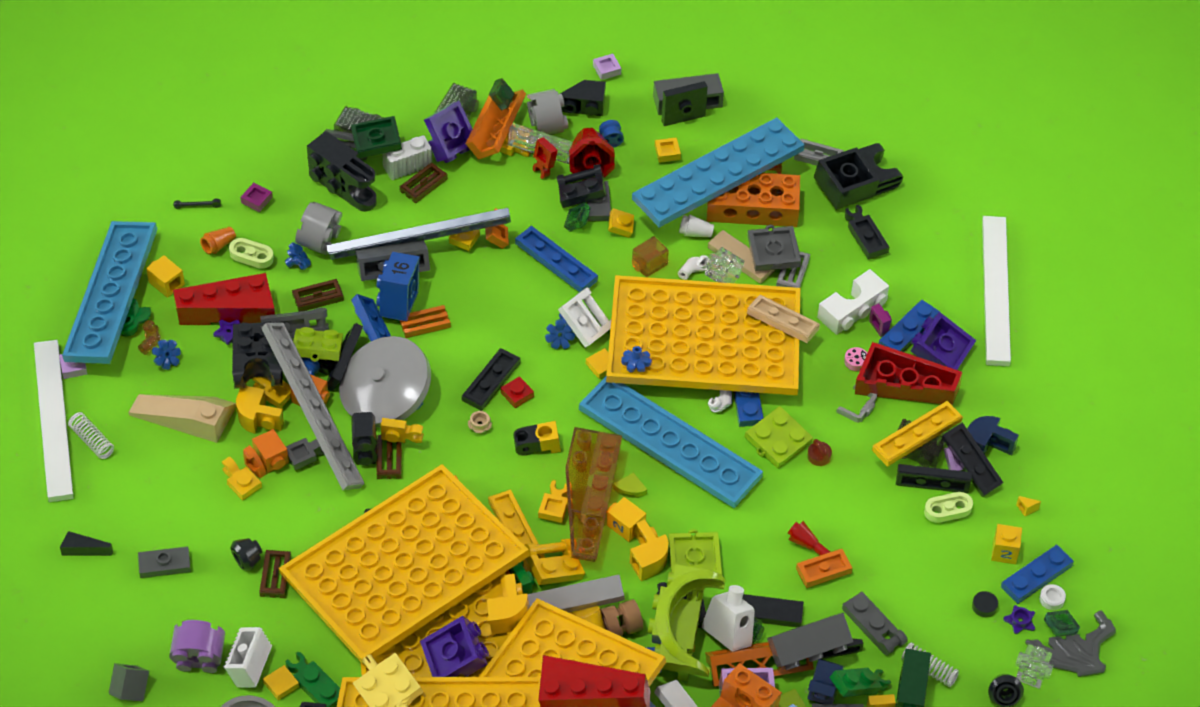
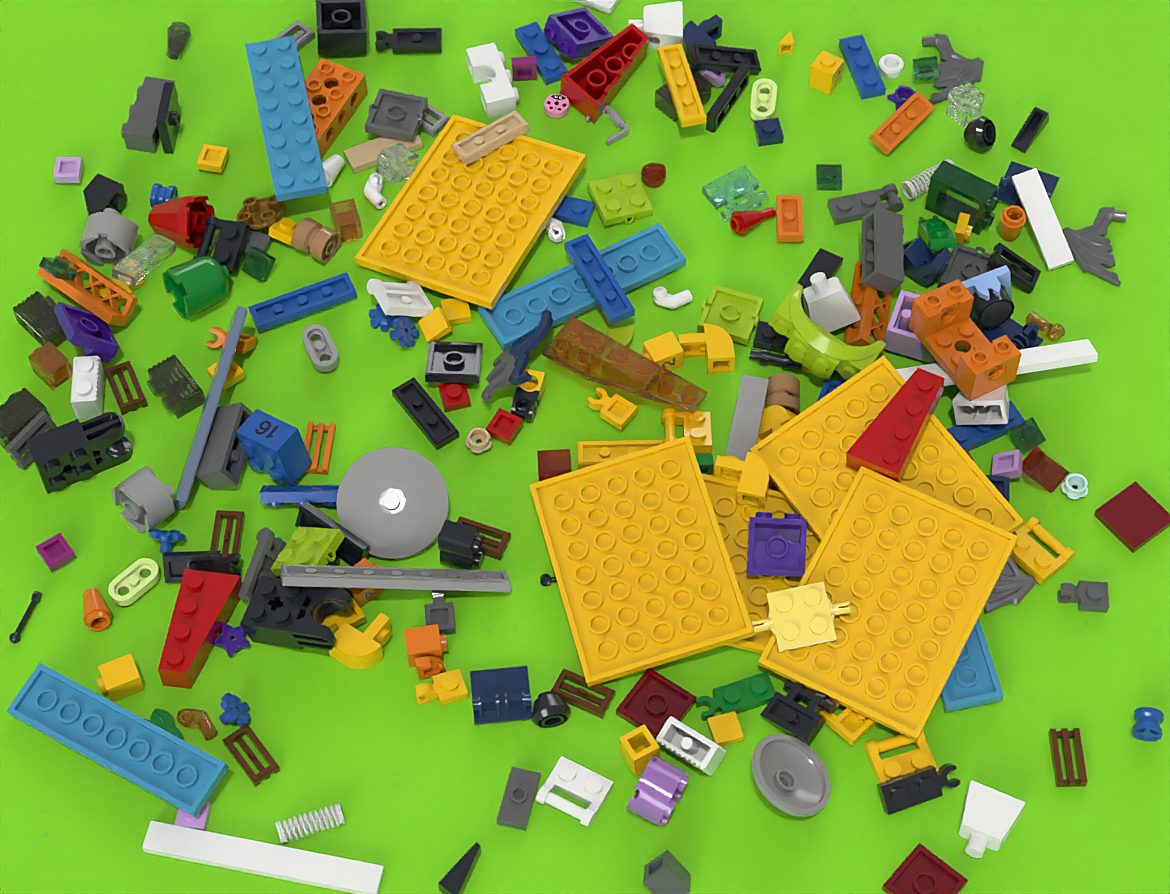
camera: 65 degrees left, 5 degrees up
(140, 381) = (264, 773): none -> reddish brown tile
(192, 598) = (579, 784): none -> white plate
(193, 415) = (327, 712): tan wedge -> none
(230, 619) = (638, 749): none -> yellow brick
(250, 517) = (501, 695): none -> dark blue hinge
(281, 285) = (209, 561): none -> black plate
(287, 626) = (654, 701): none -> dark red tile
(376, 137) = (54, 399): dark green tile -> none
(399, 431) = (464, 509): yellow plate -> none
(415, 126) = (50, 365): none -> clear orange brick
(436, 206) = (175, 386): none -> clear smoke brick
(473, 476) = (553, 463): none -> clear red panel
(500, 434) = (504, 426): none -> red plate
(514, 290) = (321, 349): none -> light grey plate
(531, 183) = (197, 284): none -> green cylinder
(546, 155) = (166, 255): red plate -> none
(546, 378) = (454, 362): none -> black plate
(568, 414) = (514, 360): none -> dark blue piece
(577, 353) = (435, 325): none -> yellow tile
(618, 243) = (314, 238): none -> medium nougat wheel
(622, 199) = (261, 212): none -> pearl gold dish
(636, 359) = (484, 270): blue plant -> none
(674, 444) = (599, 279): none -> blue plate
(688, 508) = (670, 301): none -> white arm
(775, 82) = (177, 39): none -> clear smoke cone
(835, 514) = (731, 187): none -> clear light blue plate
(890, 586) = (828, 177): none -> clear green plate
(917, 524) = (768, 132): none -> dark blue plate
(983, 622) = (902, 123): none -> orange plate
(985, 604) = (877, 115): black tile -> none
(988, 399) = (662, 24): none -> white torso

